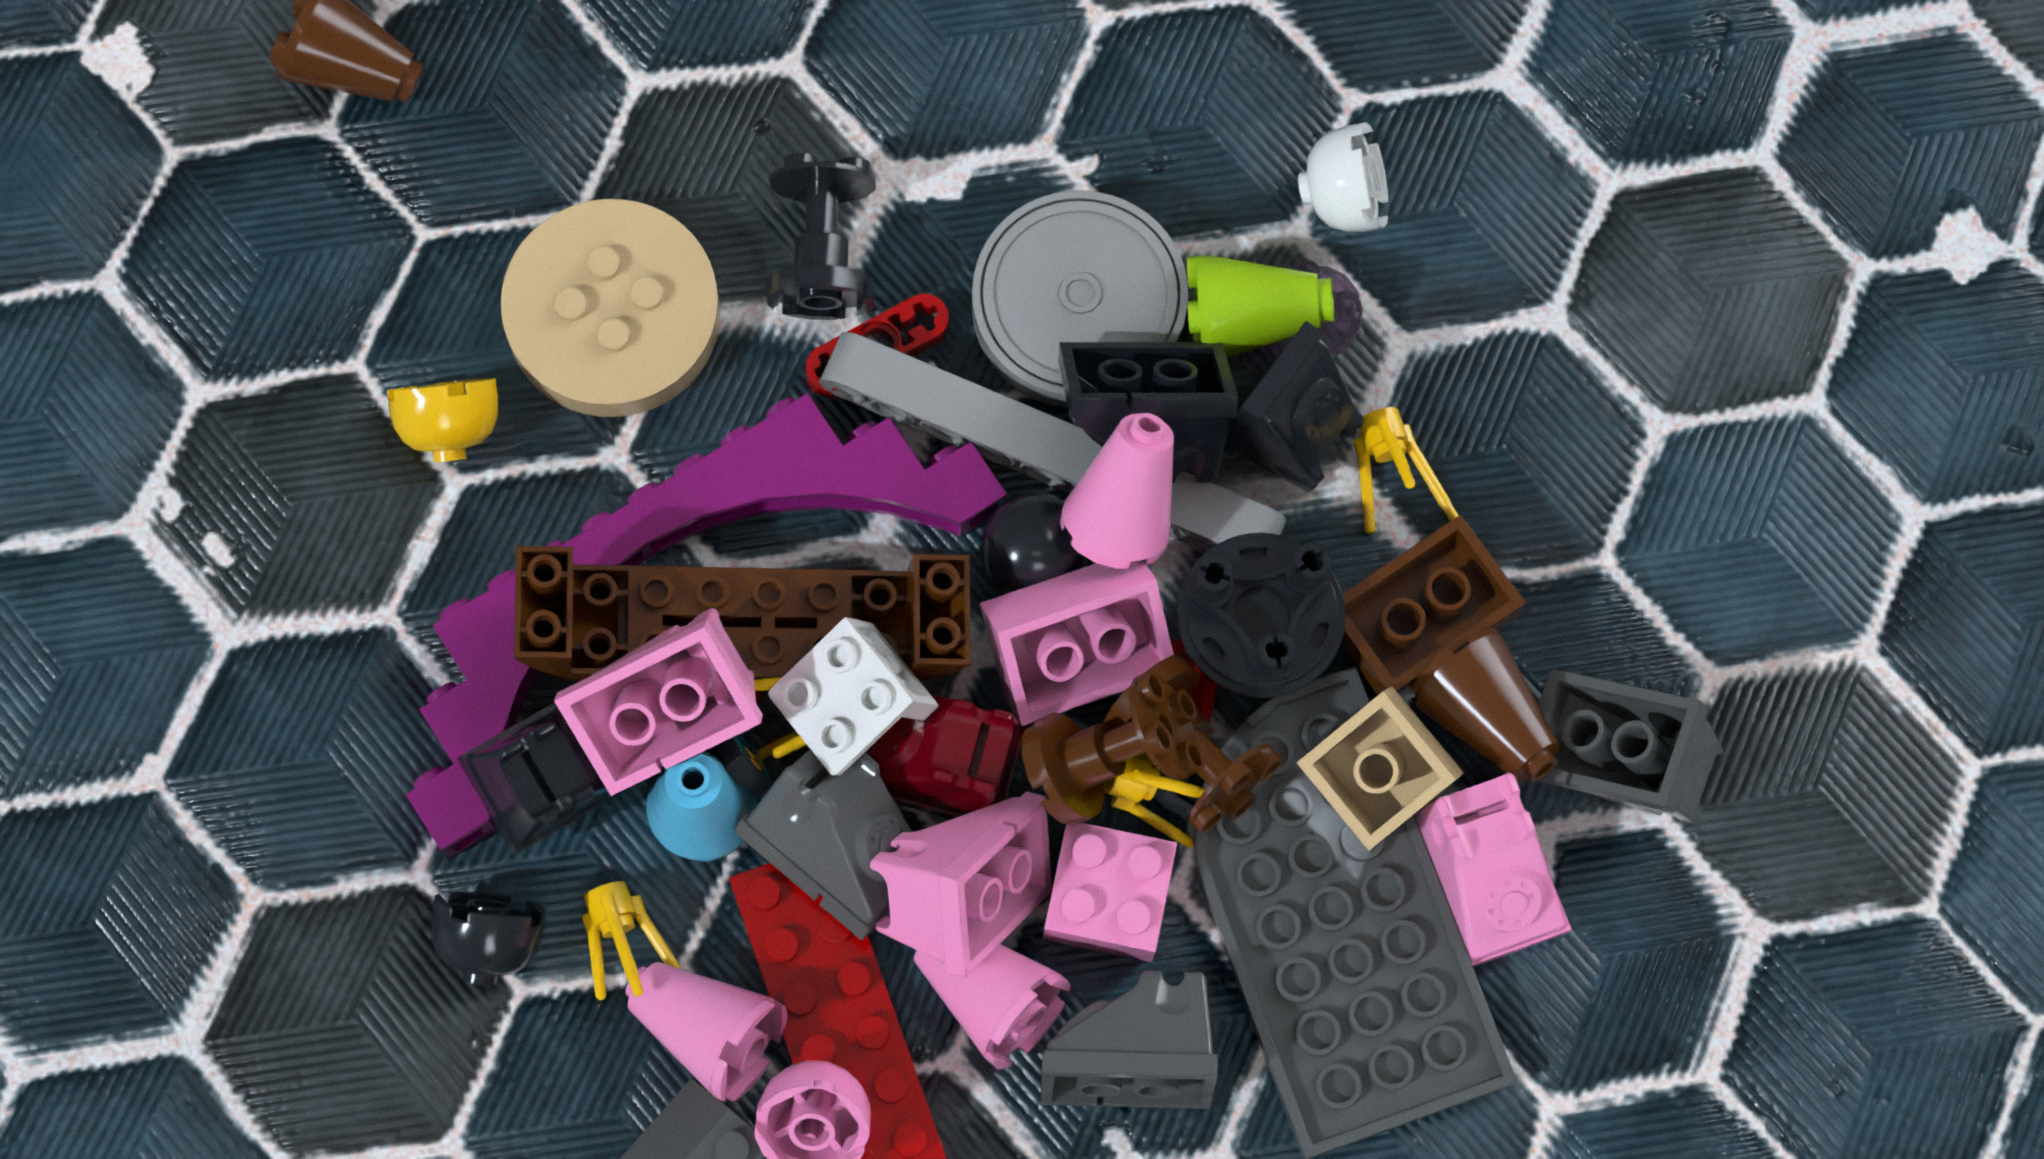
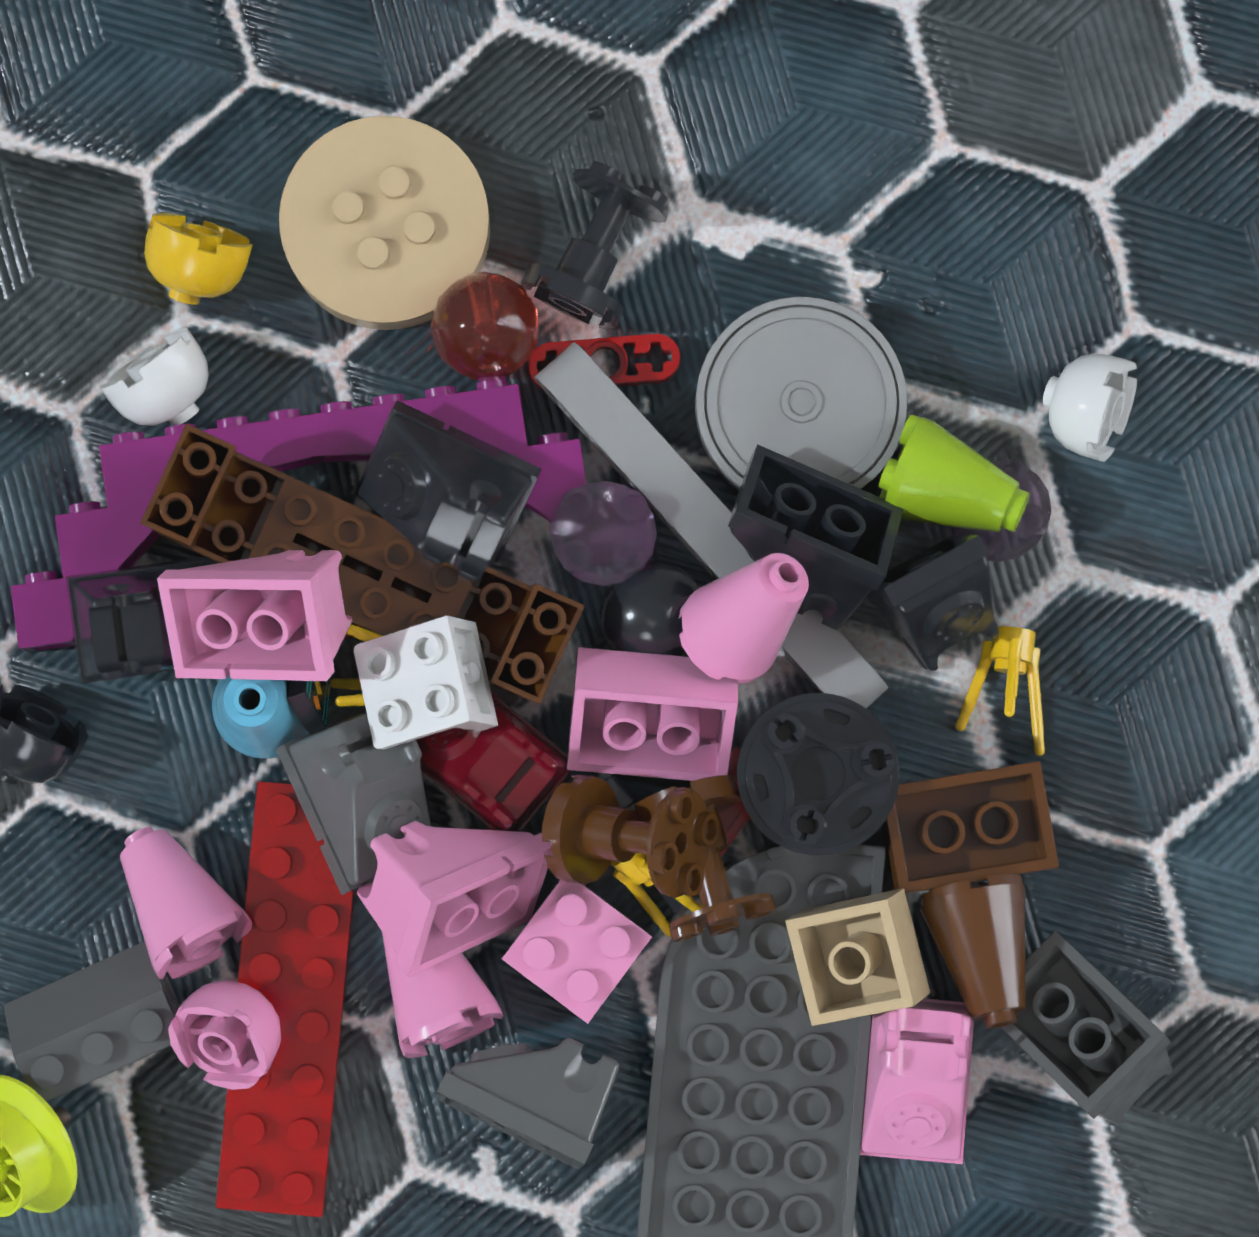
camera: 25 degrees right, 10 degrees up
(464, 543) = (160, 382): none -> white cylinder
(612, 913) = (141, 768): yellow plant -> none
(751, 354) = (485, 326): none -> clear red piece
(784, 513) = (446, 490): none -> black piece
(953, 489) = (603, 532): none -> clear purple dish

